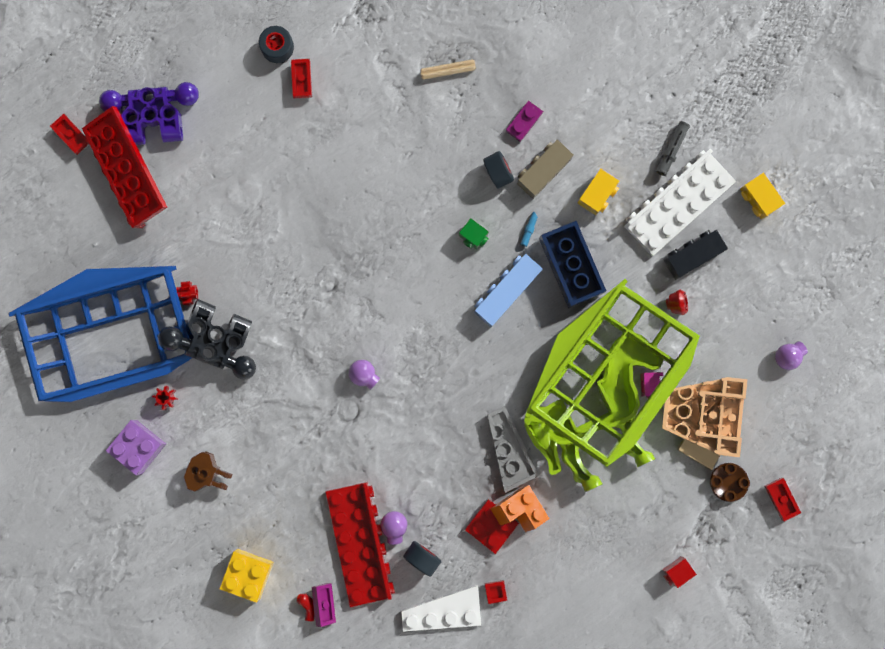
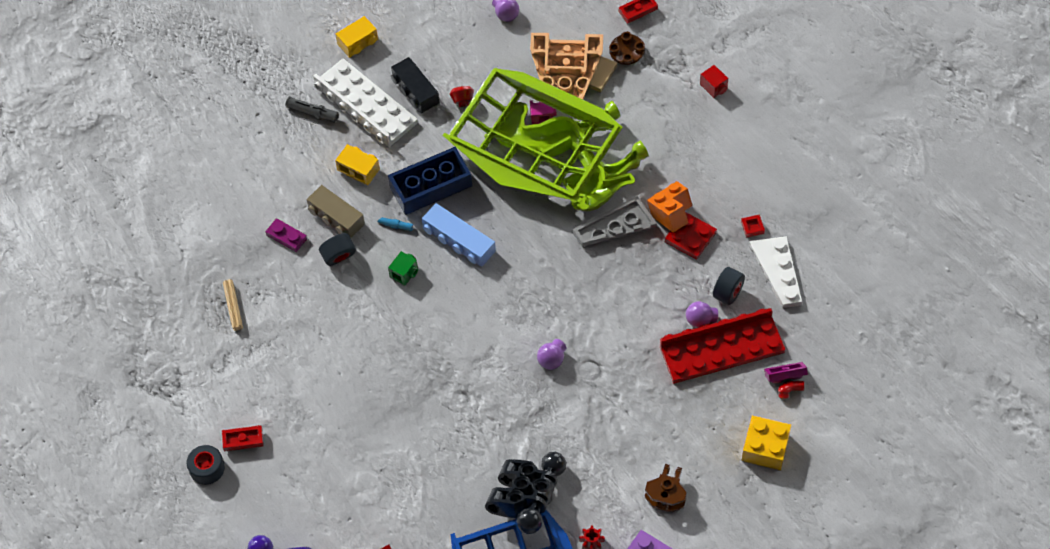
camera: 85 degrees left, 25 degrees down
(187, 293) = (477, 523): red gear -> none

